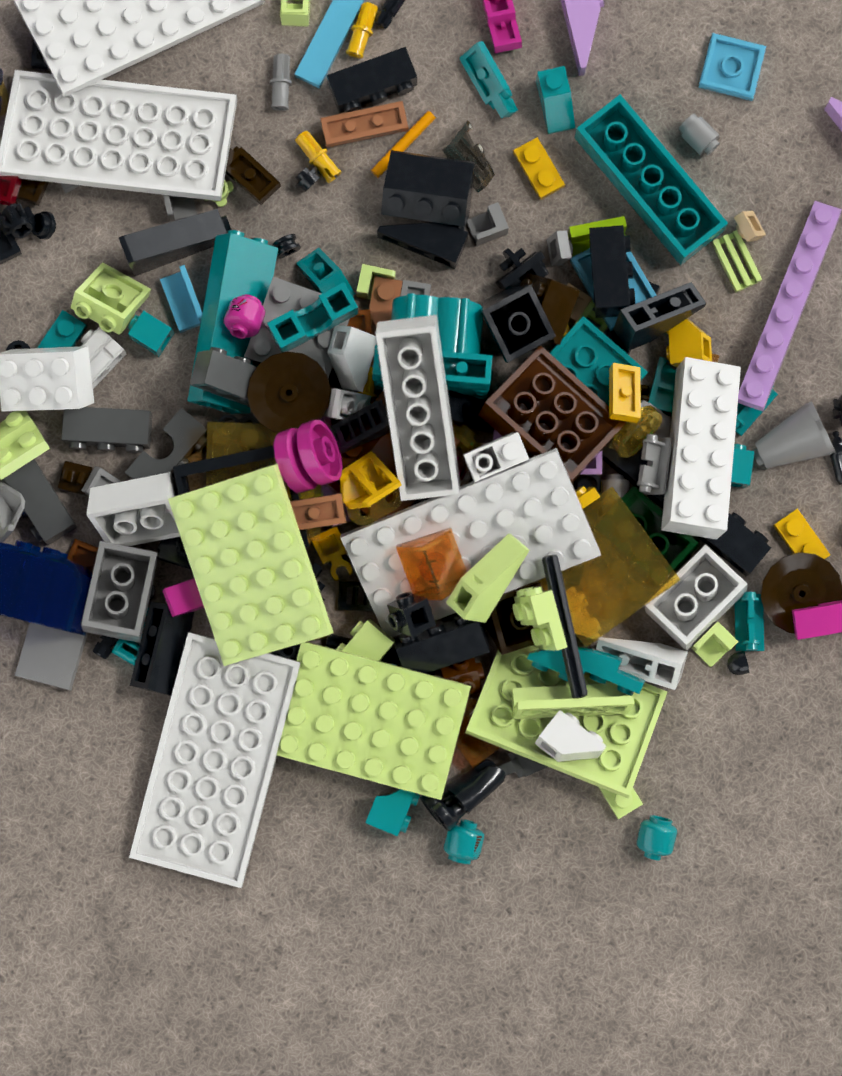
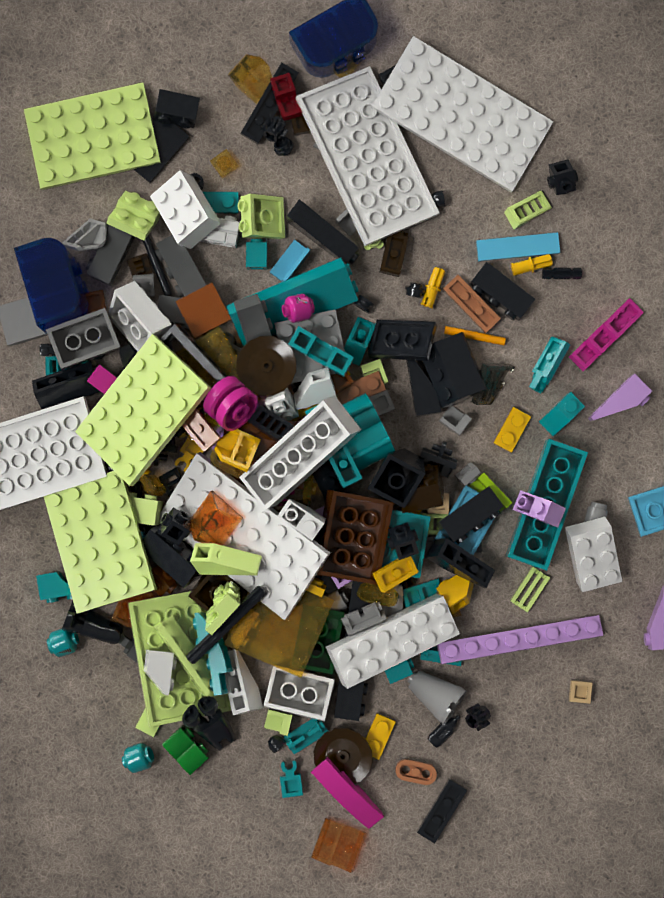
camera: 60 degrees right, 5 degrees up
(18, 306) = (224, 163): none -> clear yellow plate
(88, 458) = (157, 266): none -> black bar
(176, 430) = (203, 310): none -> dark orange tile
(219, 85) = (438, 198): none -> black hinge
(280, 82) = (466, 235): light grey axle -> none
(345, 619) = (152, 485): none -> clear yellow plate
(357, 224) = (402, 340): none -> black tile
(593, 360) = (400, 537): none -> black brick
(651, 185) = (539, 508): none -> lavender slope
(678, 721) = (213, 730): none -> black piece
(681, 774) = (186, 750): none -> green brick
(741, 160) = (593, 554): none -> white brick
(749, 226) = (556, 584): tan plate -> none
(796, 674) = (290, 783): none -> teal plate

